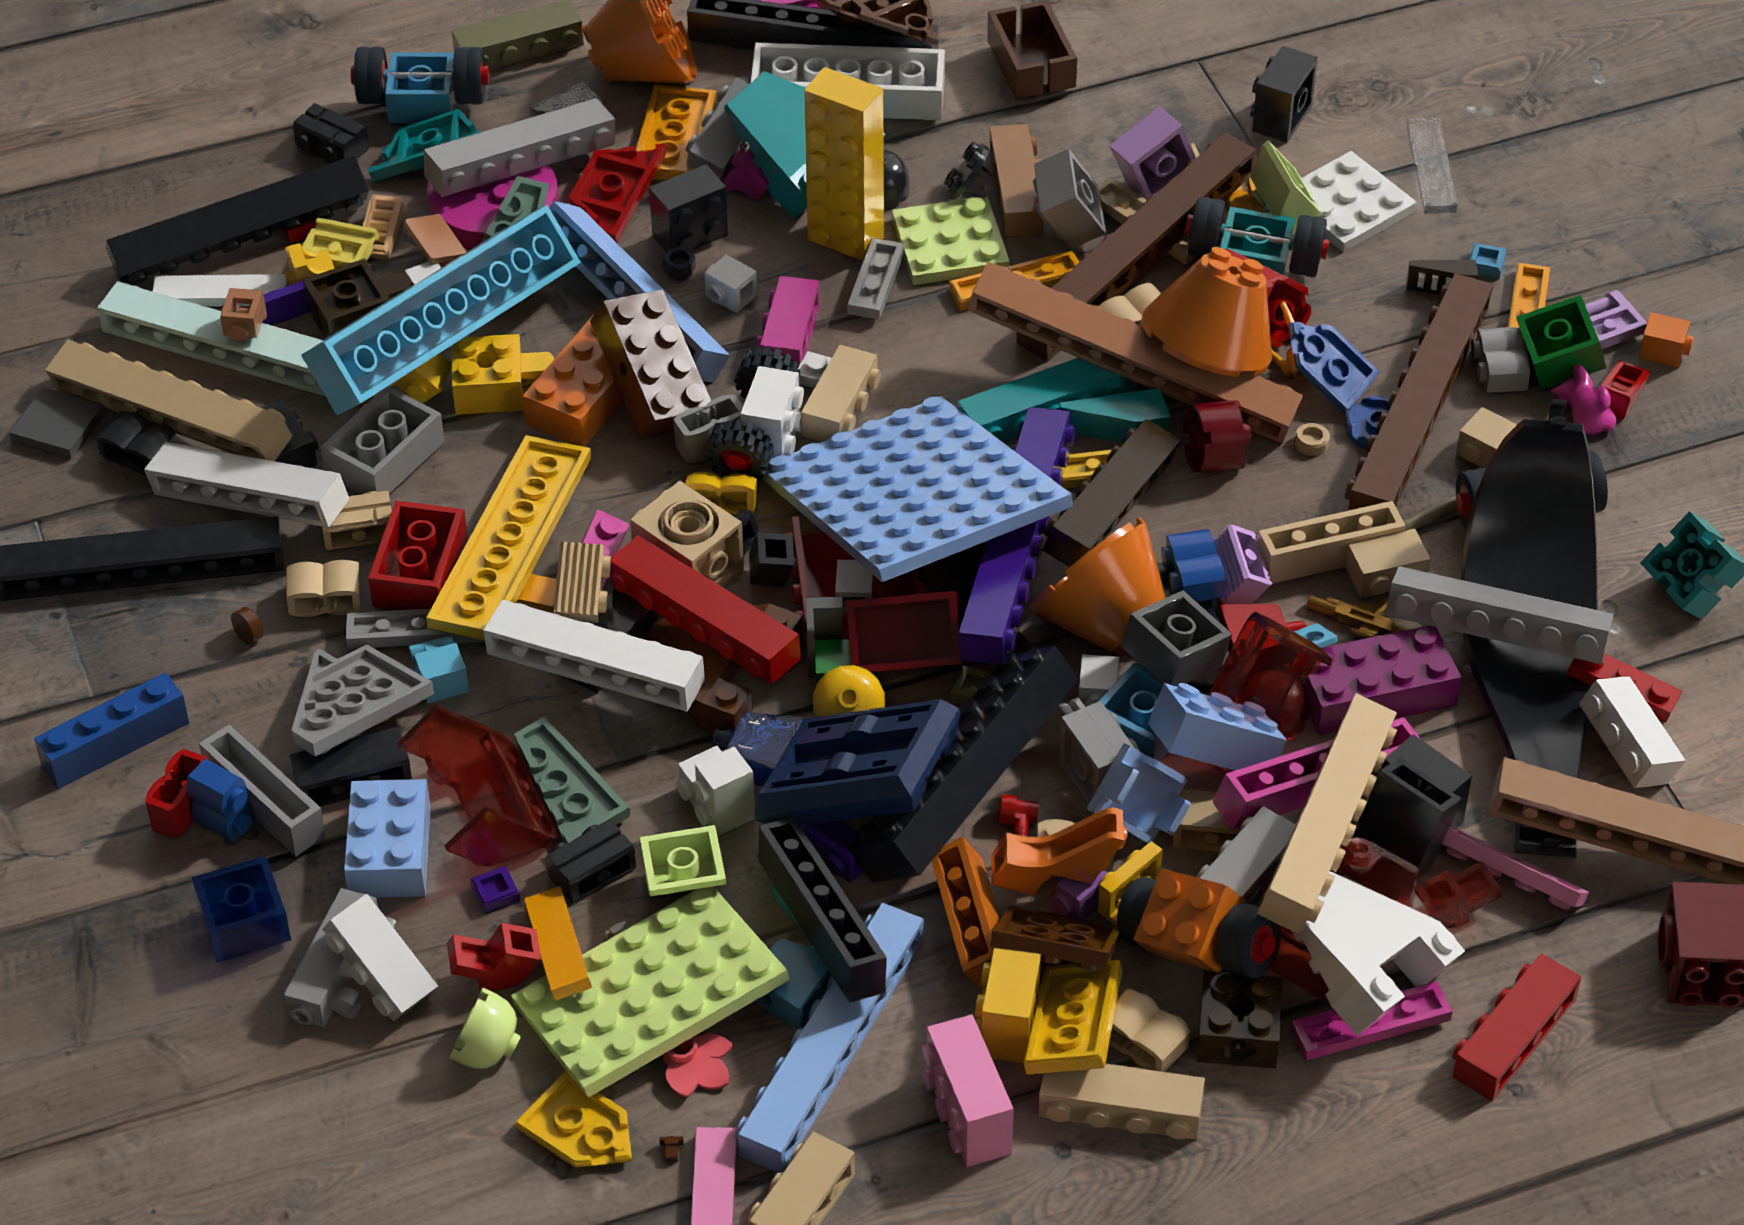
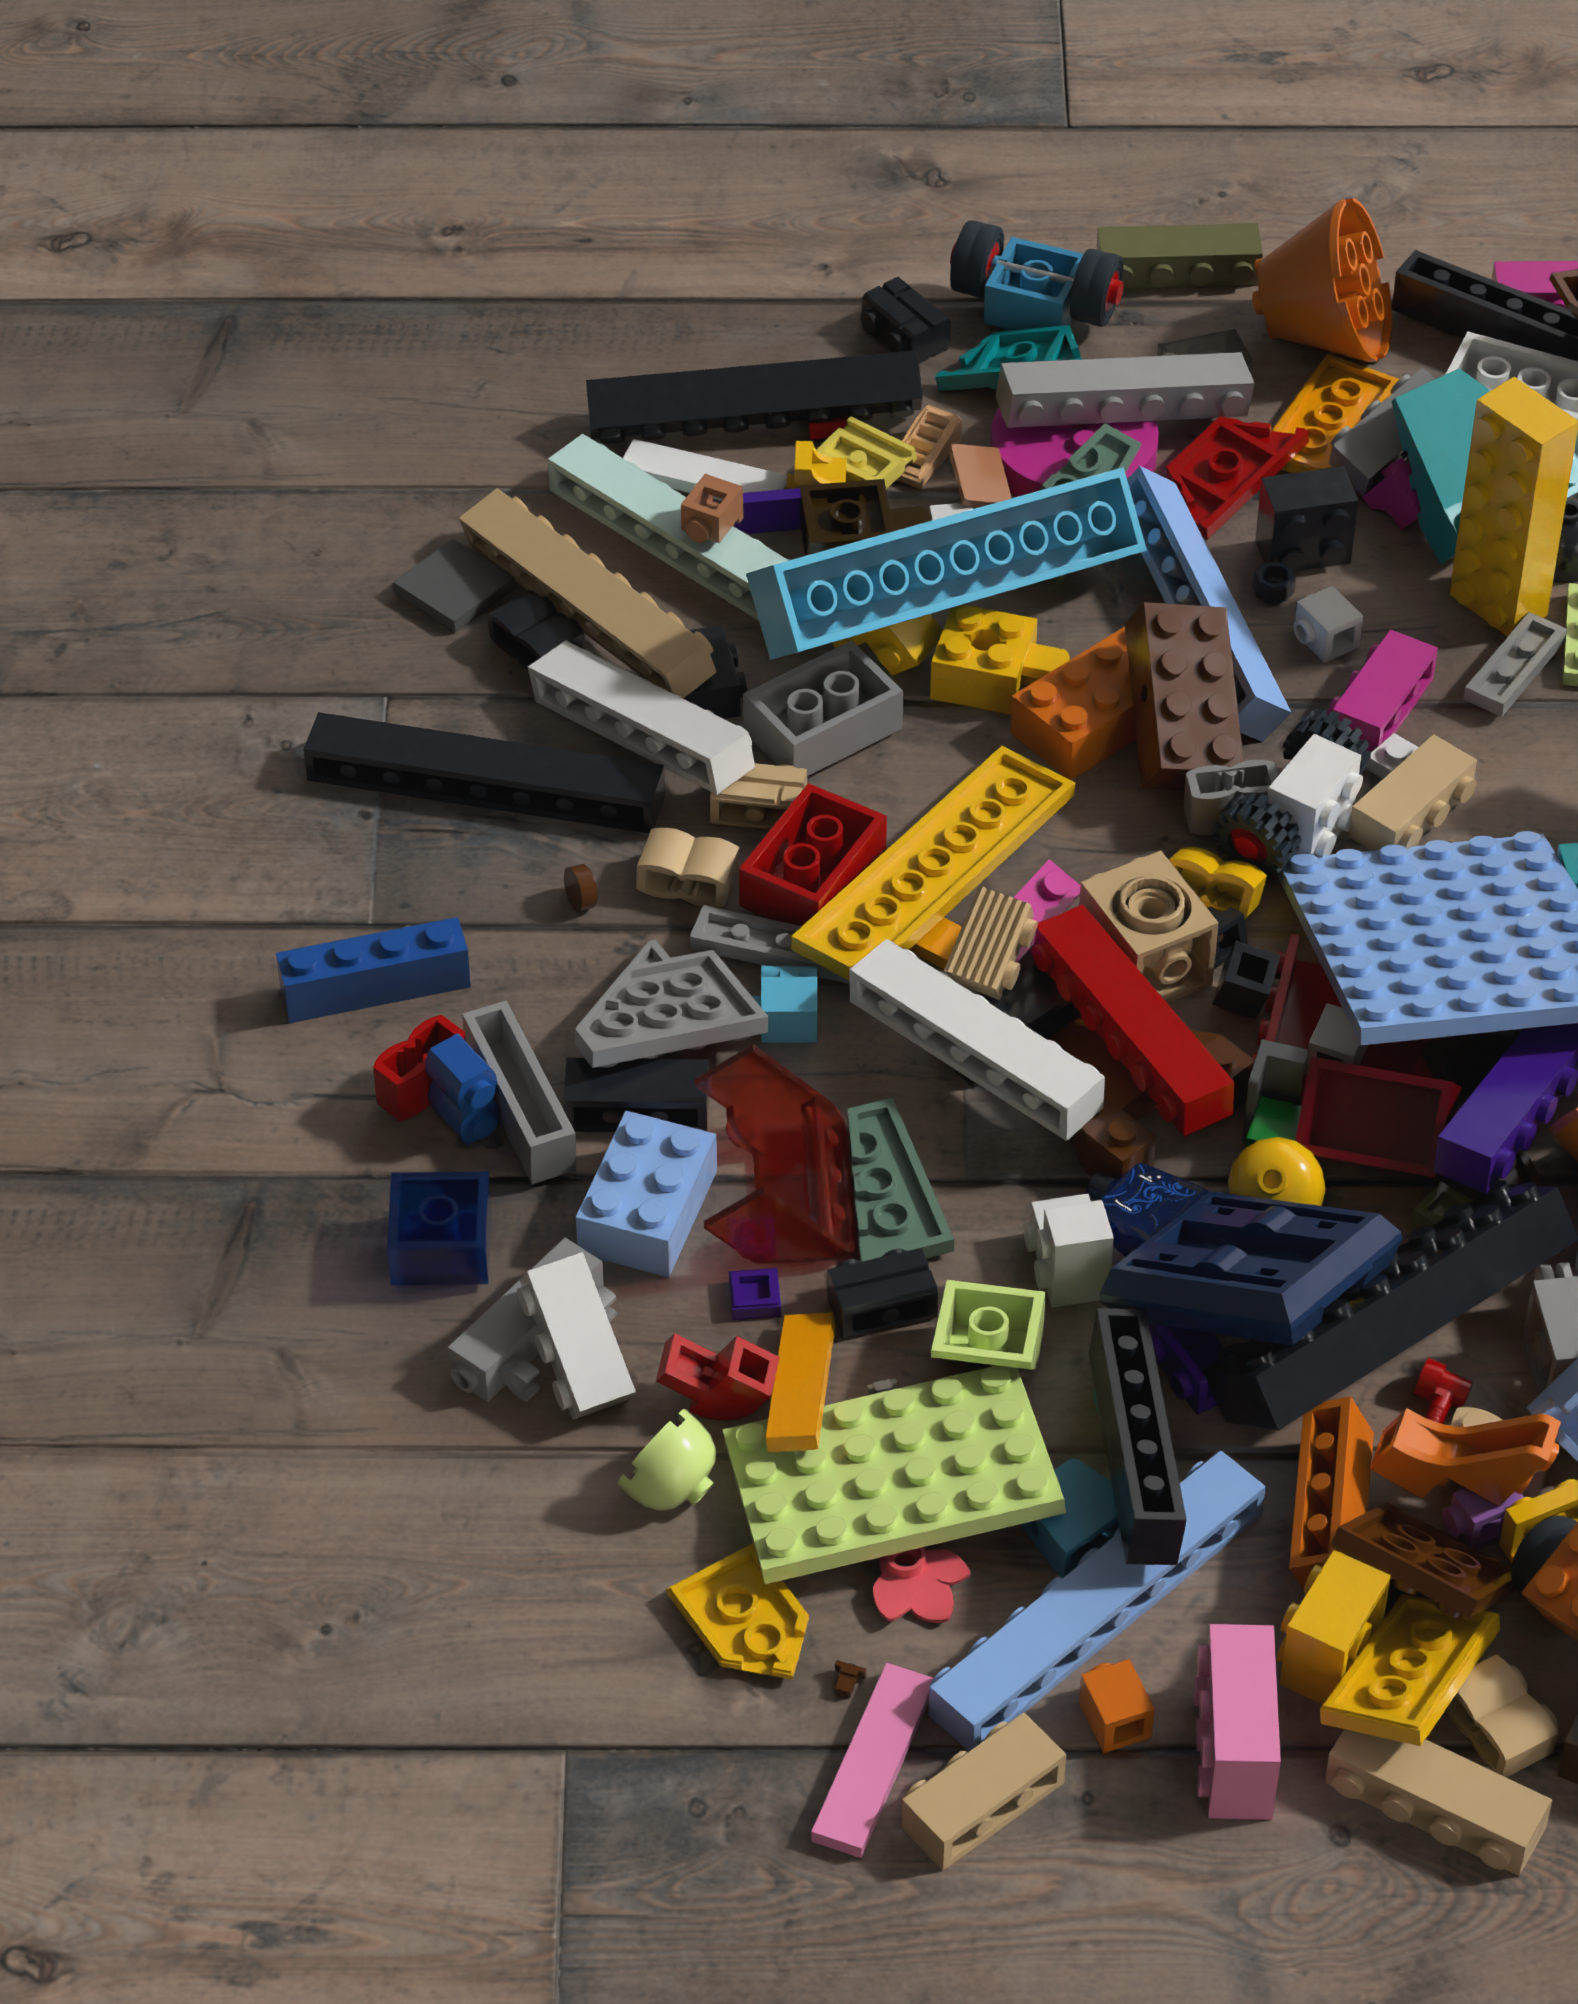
camera: 20 degrees right, 0 degrees up
(874, 1107) = (1116, 1705): none -> orange brick

